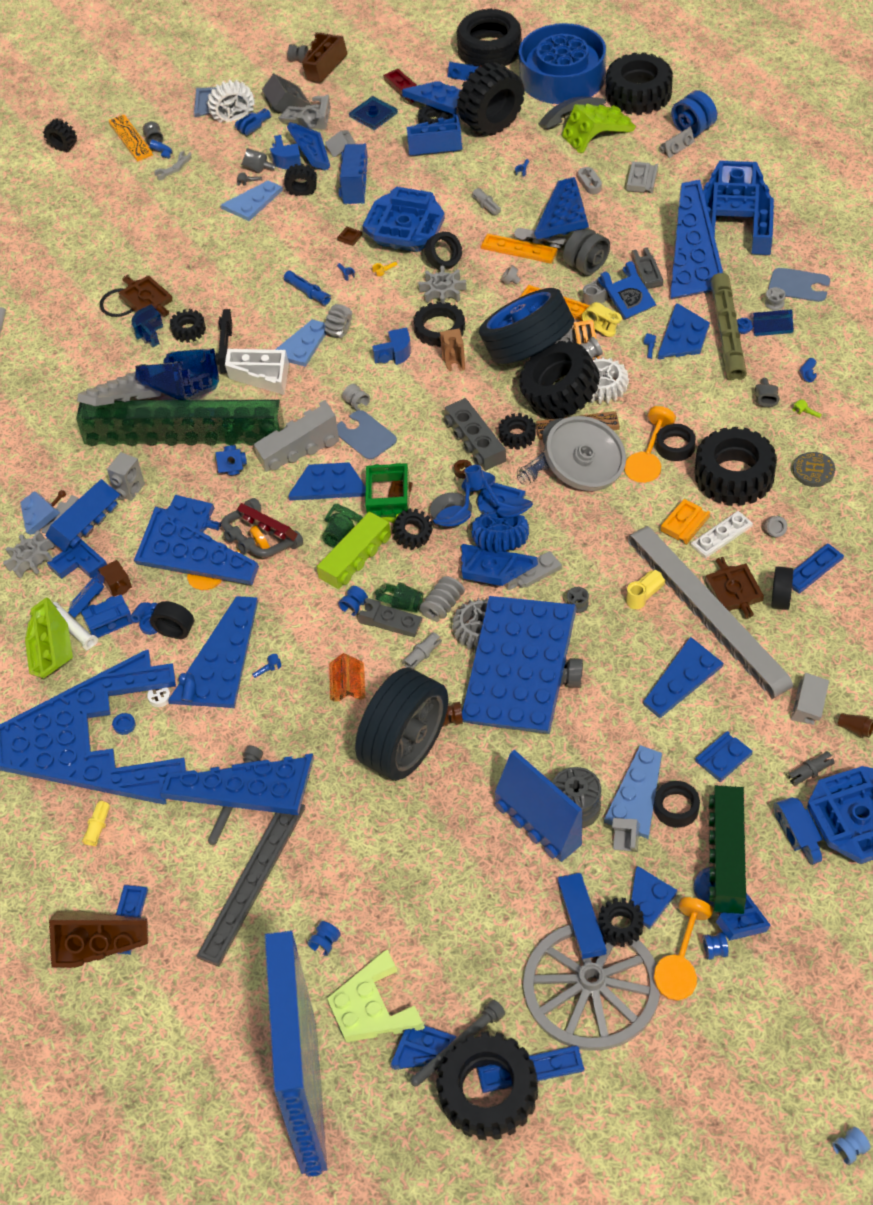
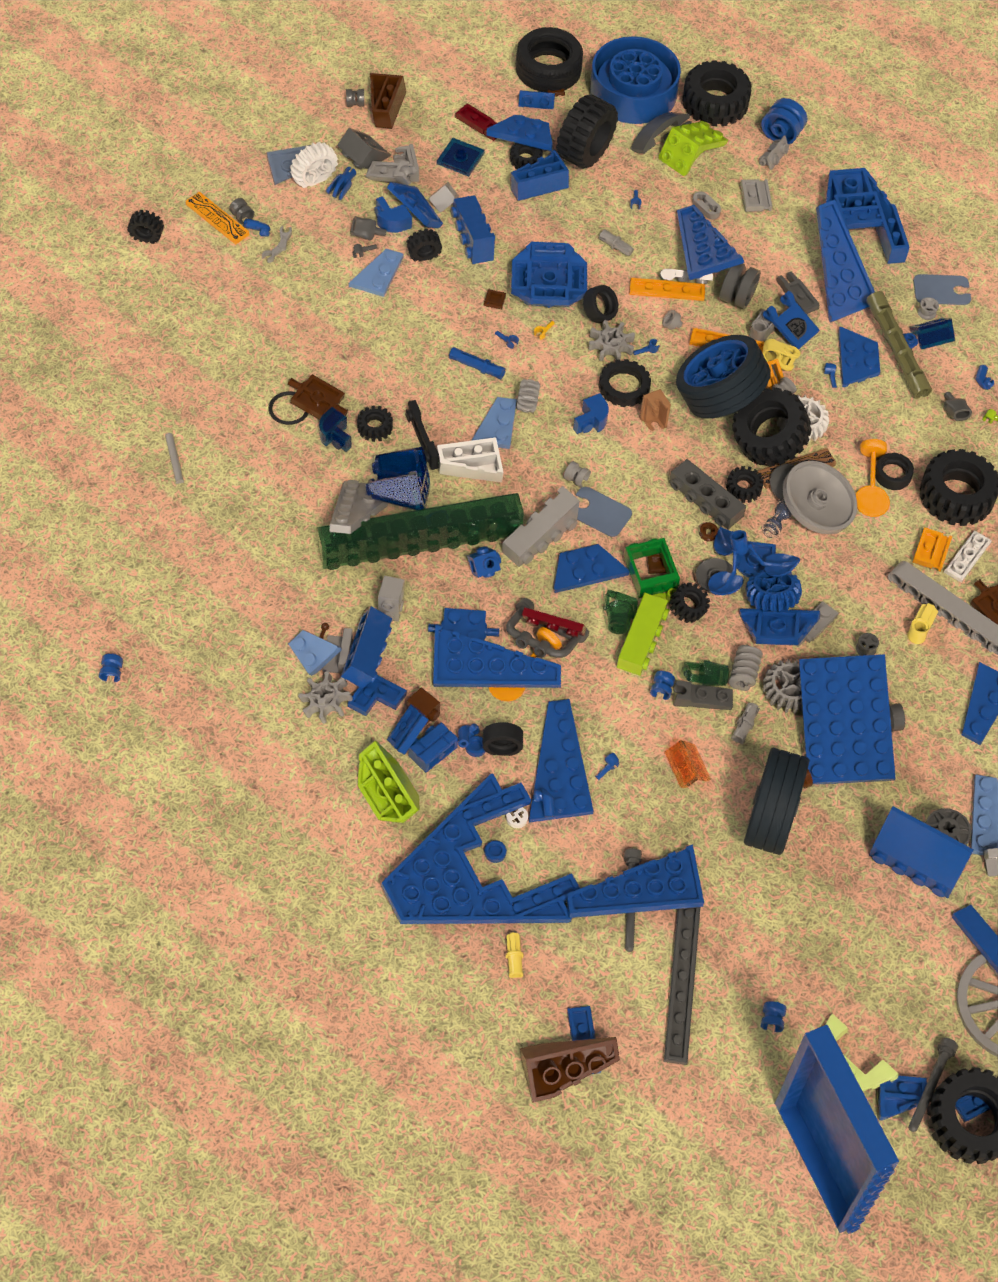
camera: 25 degrees left, 5 degrees up
(78, 631) = (412, 768): white pin -> none
(482, 297) = (650, 348): none -> blue hand

